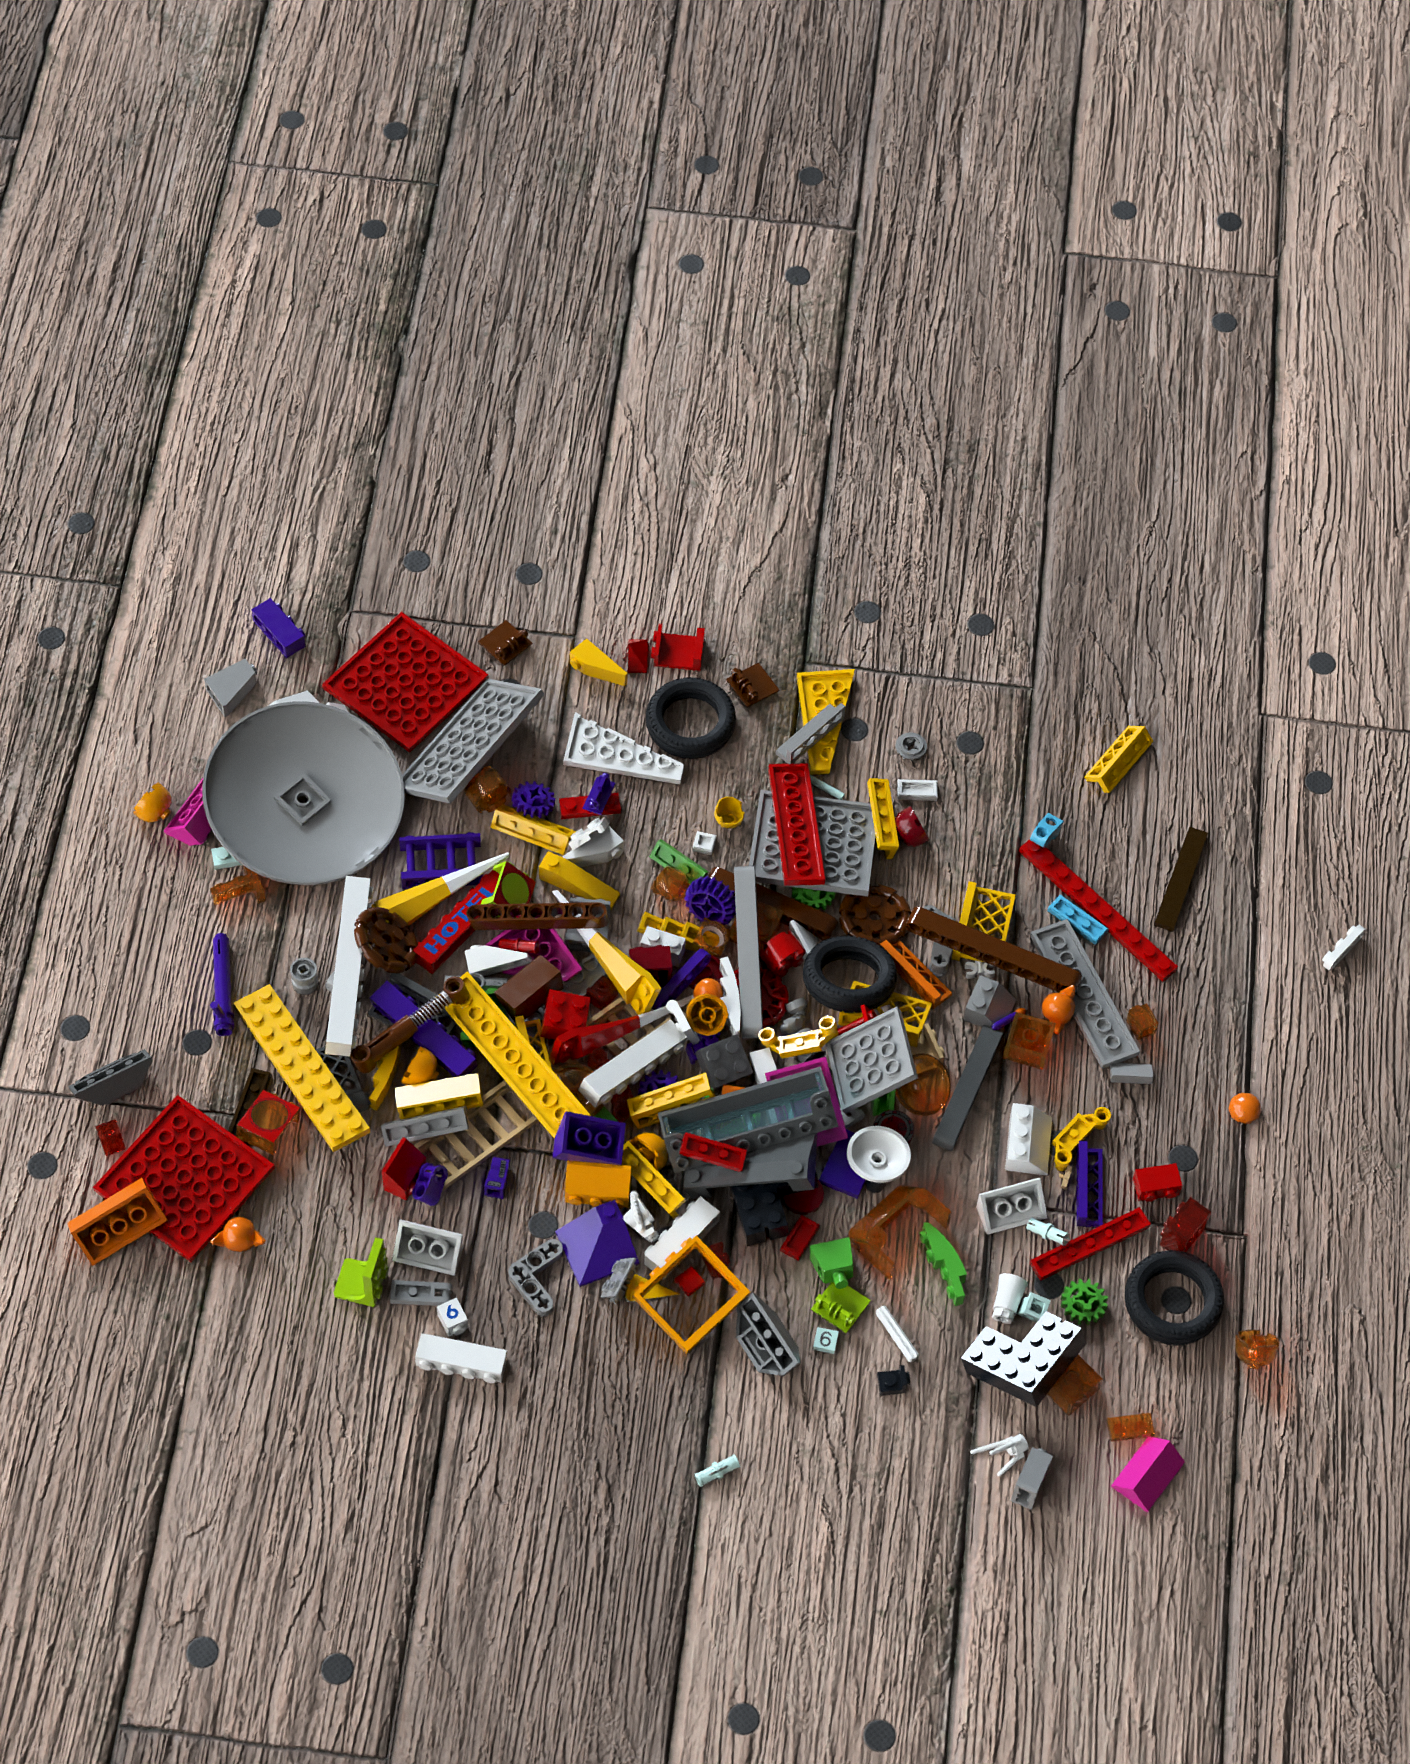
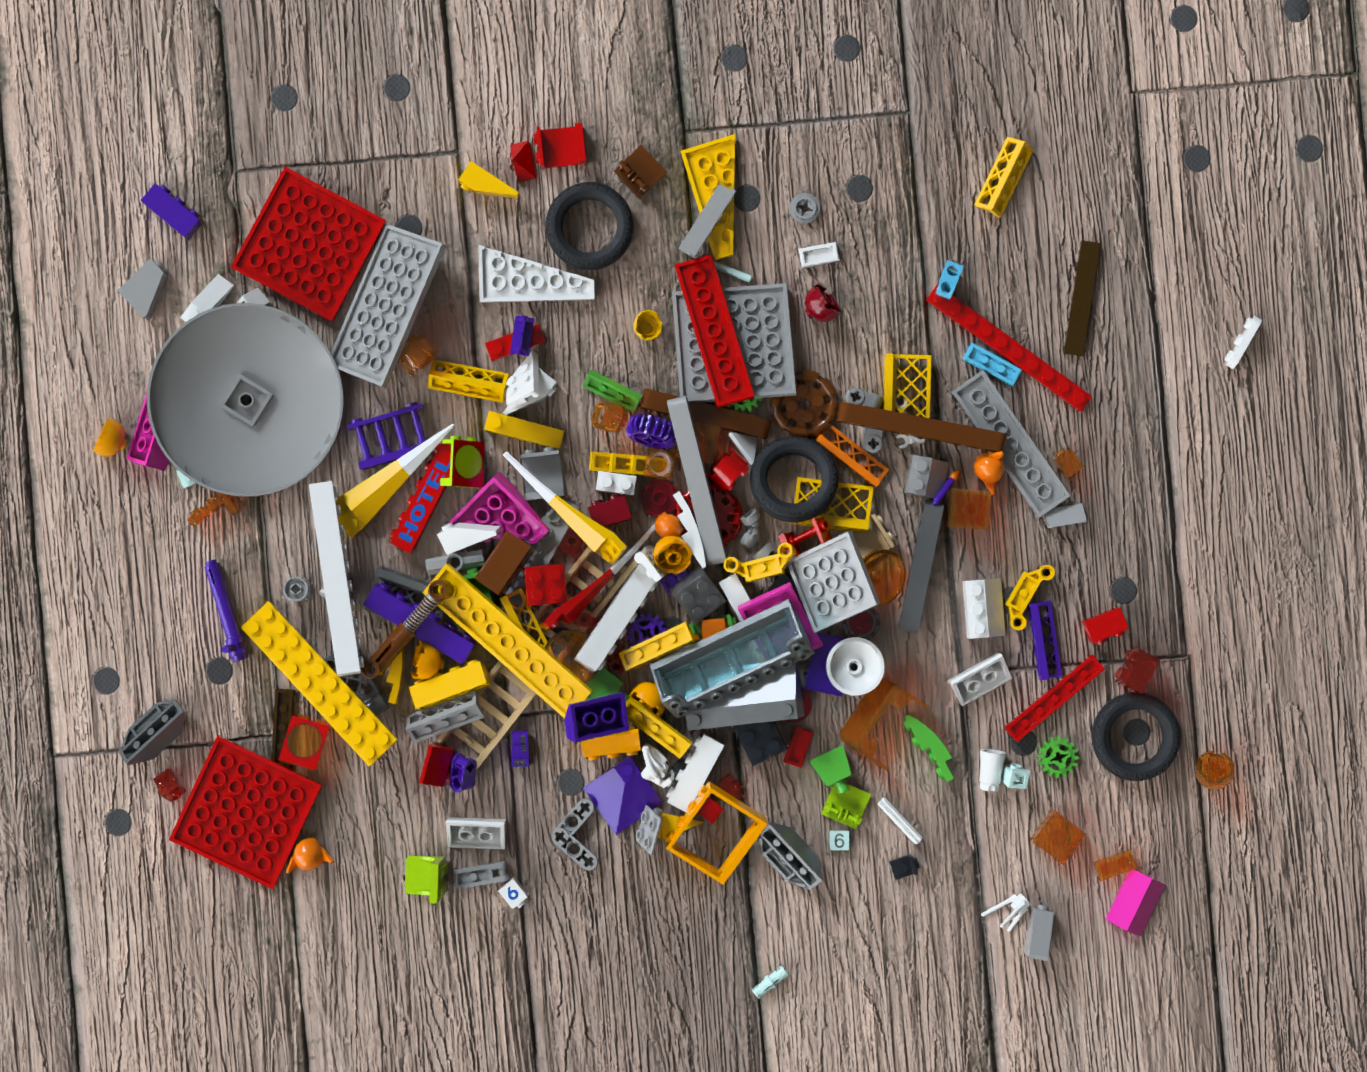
camera: 10 degrees left, 30 degrees up
(117, 1221) = (198, 871): orange slope -> none
(373, 930) = (372, 539): reddish brown plate -> none
(461, 1358) = (530, 929): white brick -> none
(505, 642) = (392, 176): reddish brown hinge -> none
(520, 945) = (485, 519): red axle -> none
(533, 799) = (454, 350): dark purple gear -> none
(546, 921) = (487, 492): reddish brown beam -> none
(682, 978) = (641, 515): dark purple beam -> none
(704, 843) = (630, 359): white tile -> none
(712, 1152) = (708, 705): red plate -> none
(883, 816) = (793, 298): yellow fence -> none
(1027, 1367) = (1022, 840): piece -> none
(1048, 1231) = (1015, 696): light aqua pin -> none
(1066, 1177) = (1023, 638): tan piece -> none
(1245, 1108) = (1172, 530): orange hair -> none

